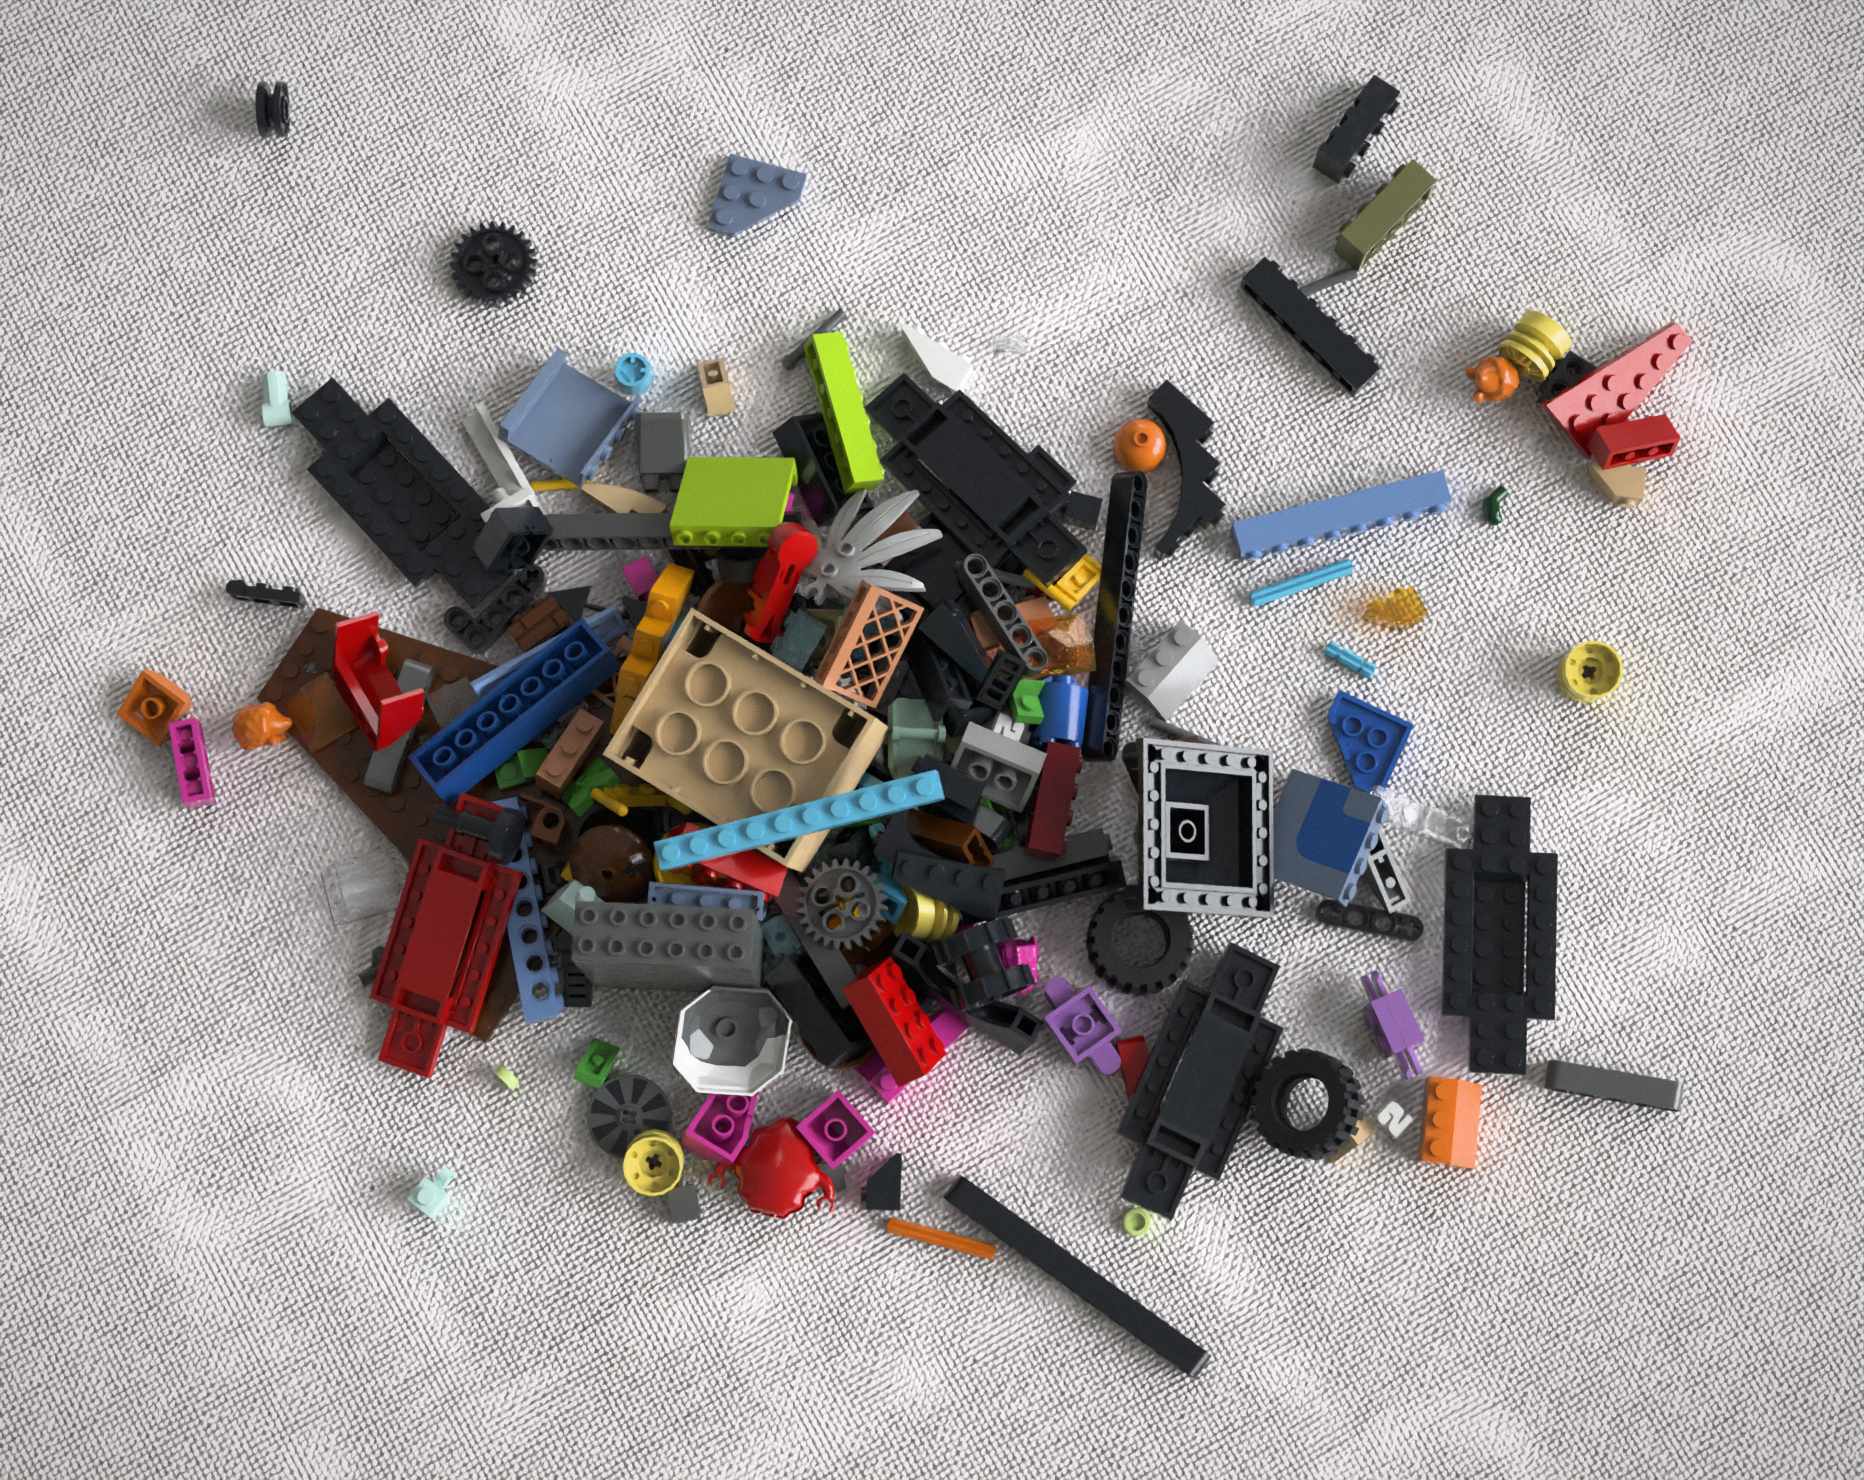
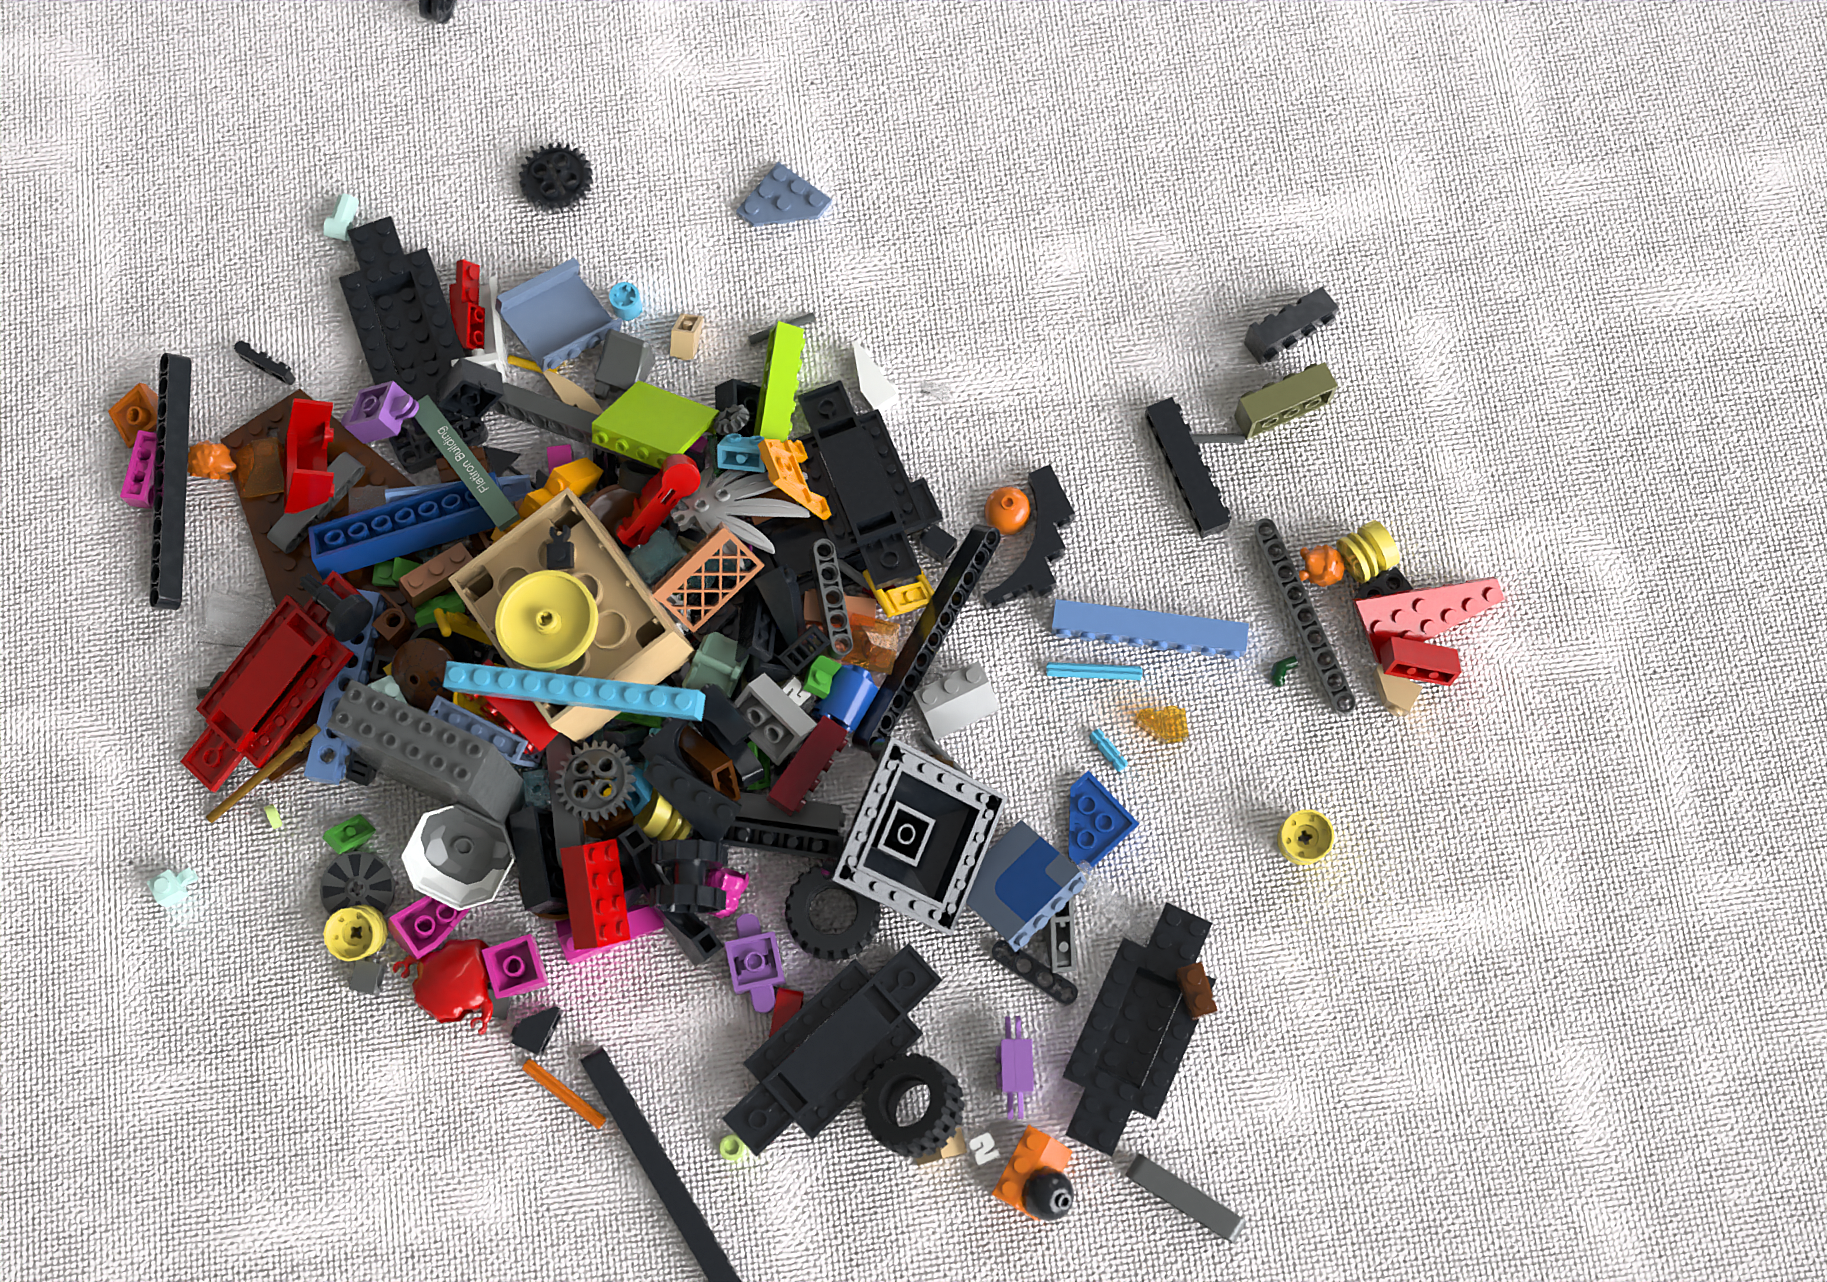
camera: 25 degrees right, 5 degrees down
(229, 764) = (170, 482): none -> black beam
(424, 601) = (379, 412): none -> medium lavender brick
(466, 456) = (464, 305): none -> red slope
(503, 990) = (298, 743): none -> pearl gold bar
(549, 621) = (465, 464): none -> sand green tile
(715, 680) = (560, 552): none -> black plate
(736, 758) = (546, 620): none -> light yellow dish
(811, 508) = (713, 441): none -> clear green tile
(823, 459) = (739, 416): none -> dark grey gear
(846, 494) = (740, 453): none -> medium azure brick
(889, 485) = (784, 472): none -> light orange wing
(1478, 1137) = (1048, 1194): none -> black cylinder
(1501, 452) = (1307, 628): none -> dark grey beam
(1545, 874) = (1196, 991): none -> reddish brown brick

